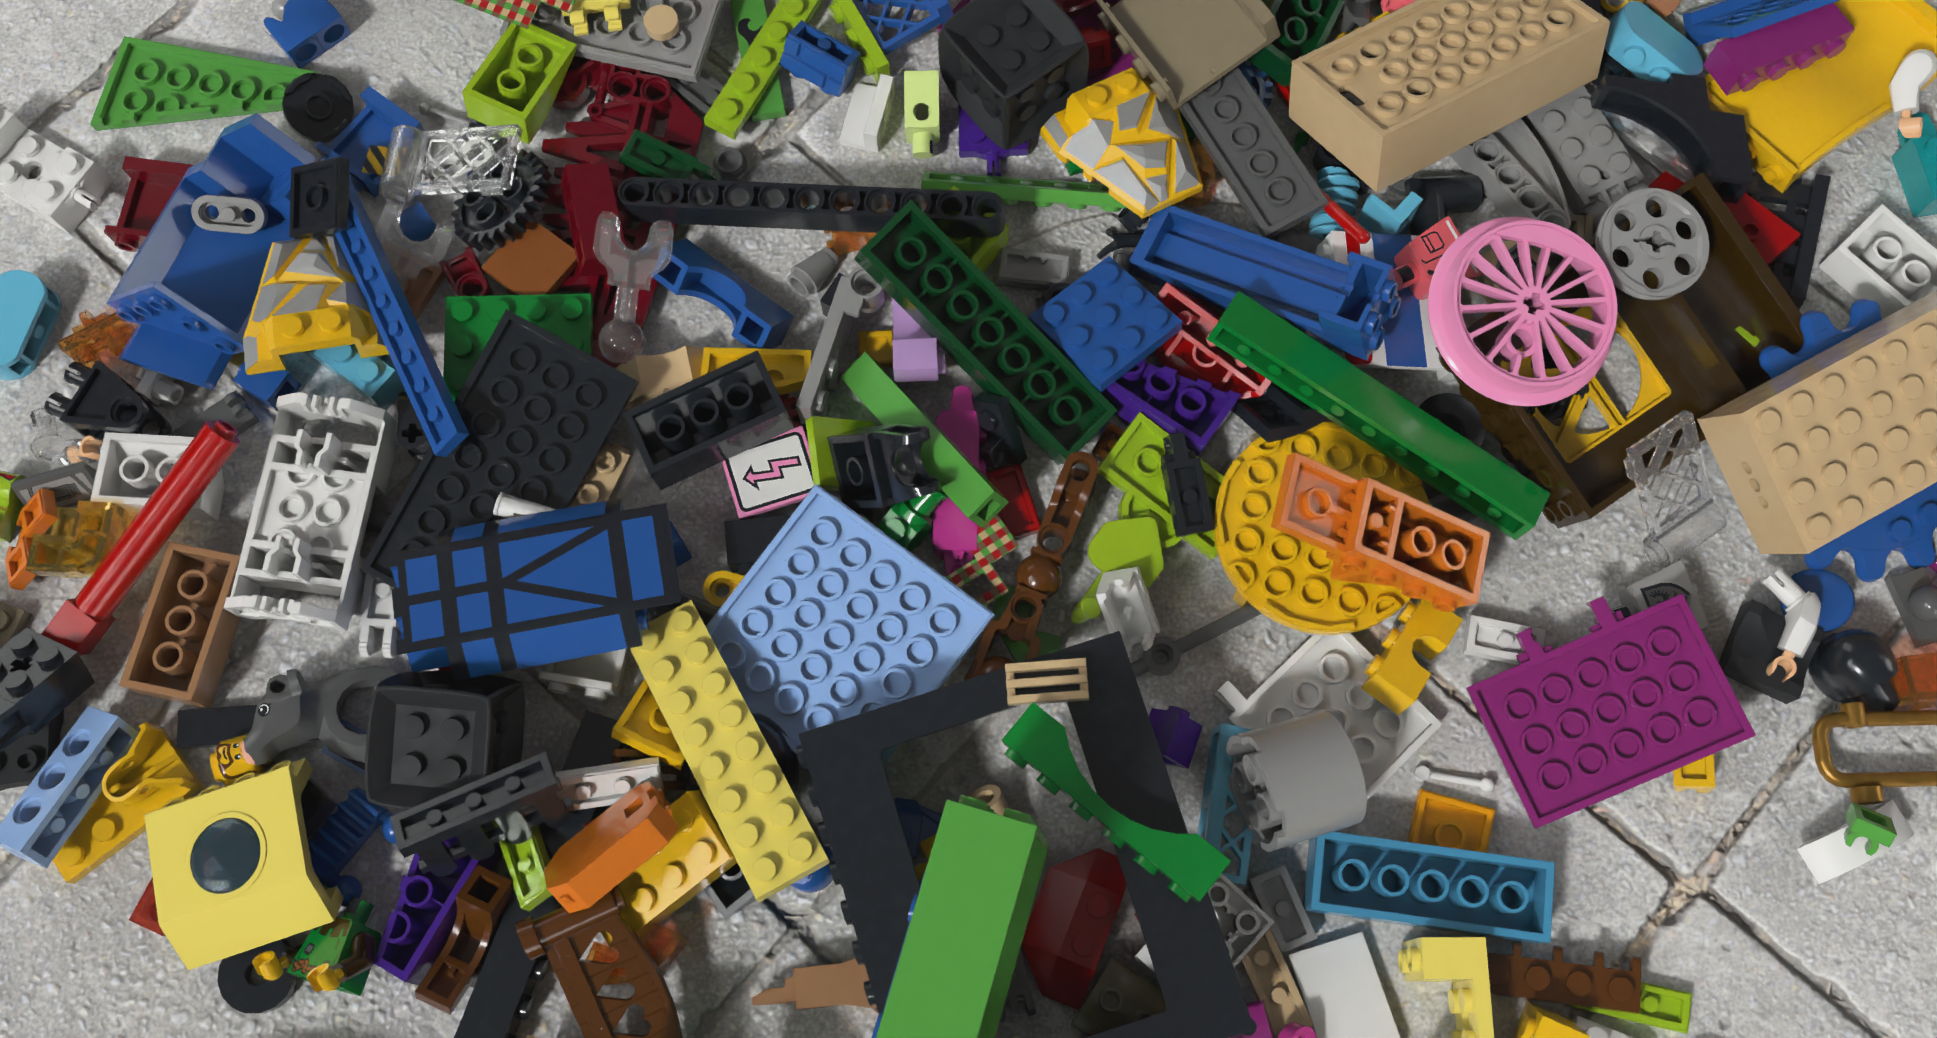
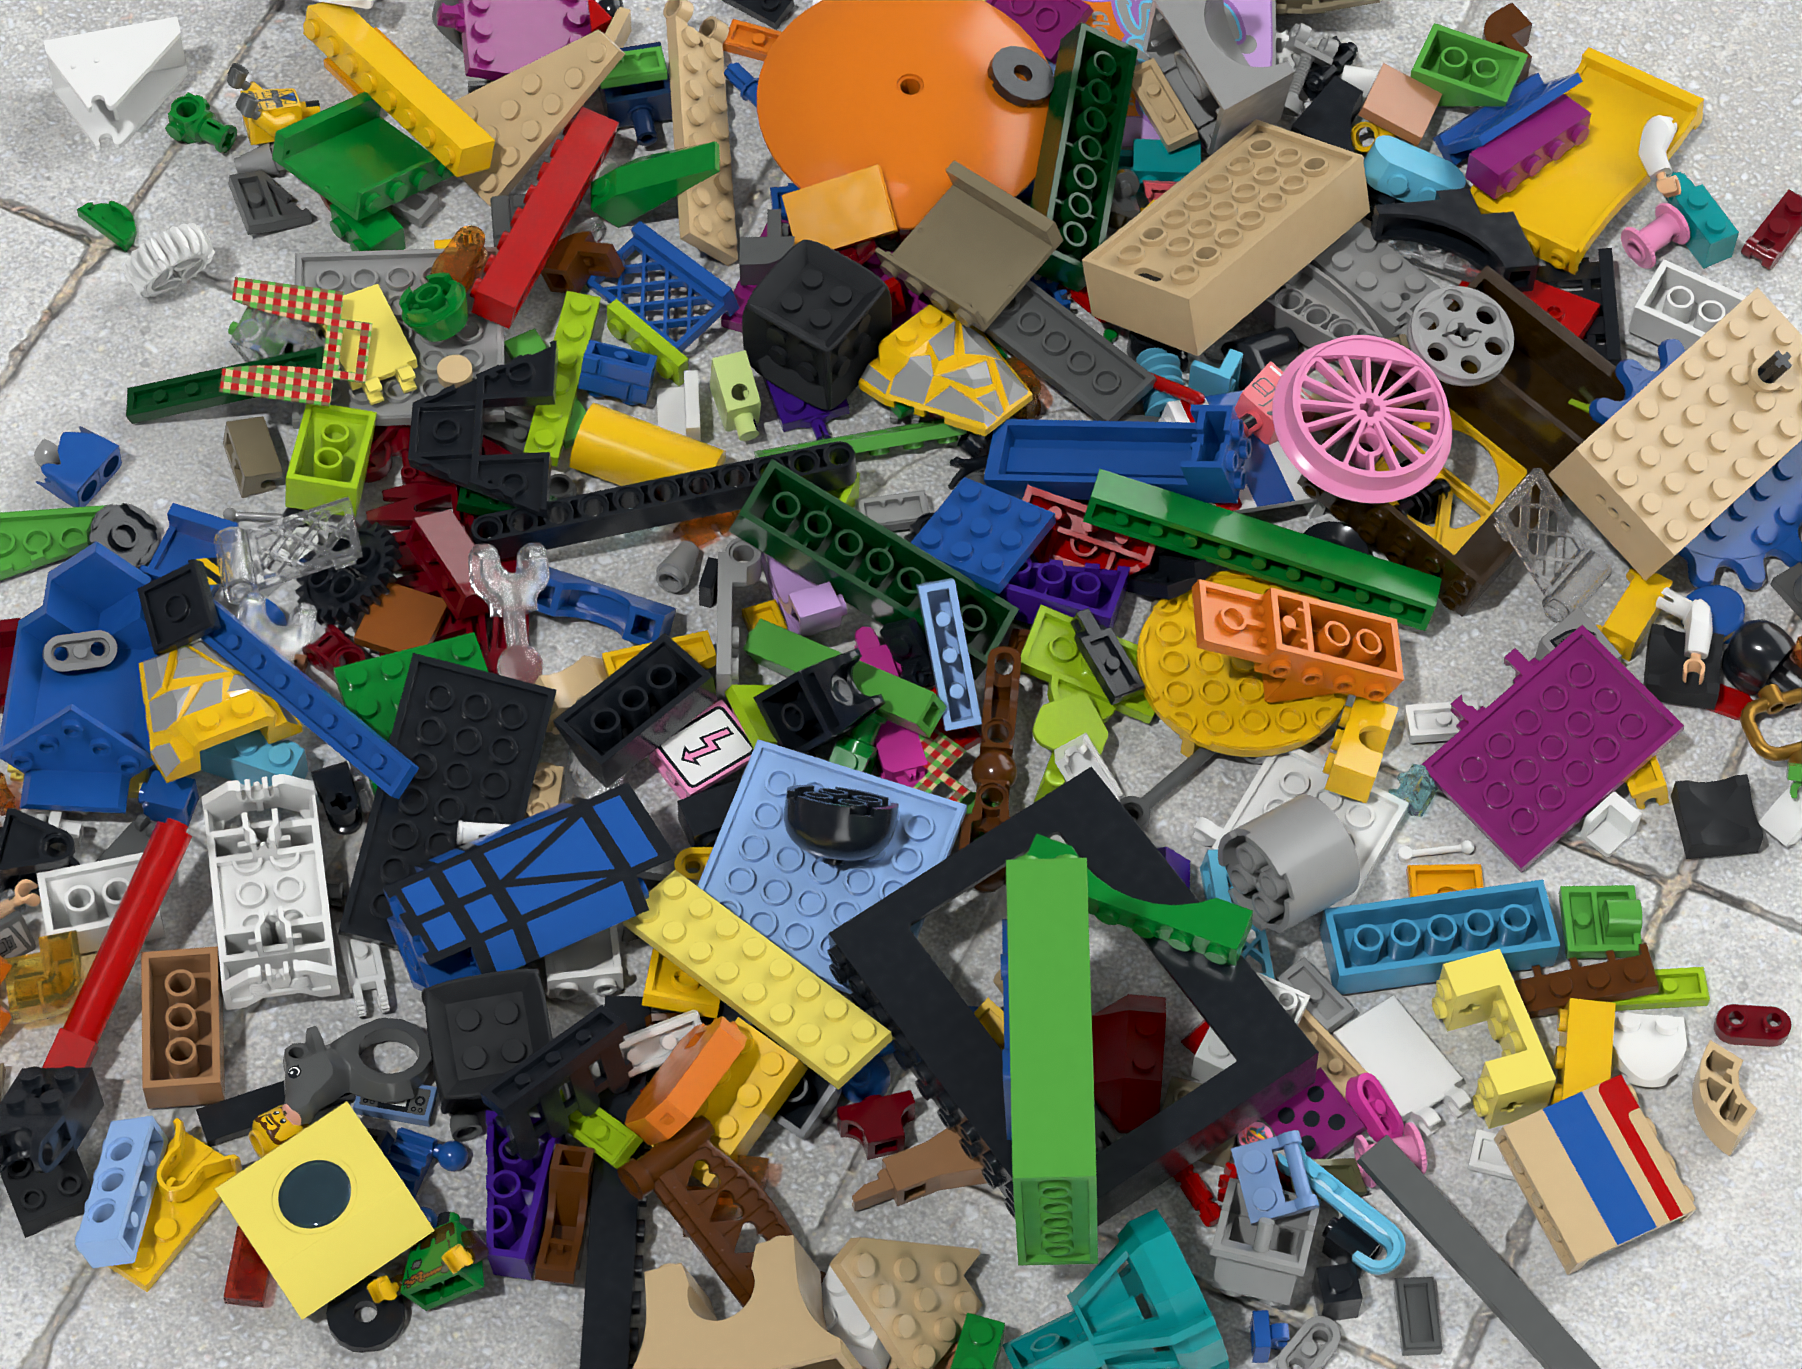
camera: 20 degrees left, 15 degrees down
(461, 52) = (251, 455): none -> dark tan hinge
(636, 79) = (450, 427): none -> black wing
(805, 920) = (878, 1122): none -> dark red brick
(814, 145) = (634, 450): none -> yellow brick
(848, 610) = (839, 822): none -> black cylinder
(1027, 446) = (949, 653): none -> light blue brick
(1041, 666) = (1063, 801): tan tile -> none
(1454, 710) = (1416, 789): none -> clear light blue tile
(1600, 911) = (1600, 920): none -> bright green plate
(1642, 806) = (1610, 824): none -> white panel
(1736, 578) = (1634, 612): none -> yellow brick
(1755, 830) = (1716, 817): none -> black brick
(1811, 704) = (1731, 702): none -> red piece
(1894, 166) = (1667, 227): none -> bright pink hose

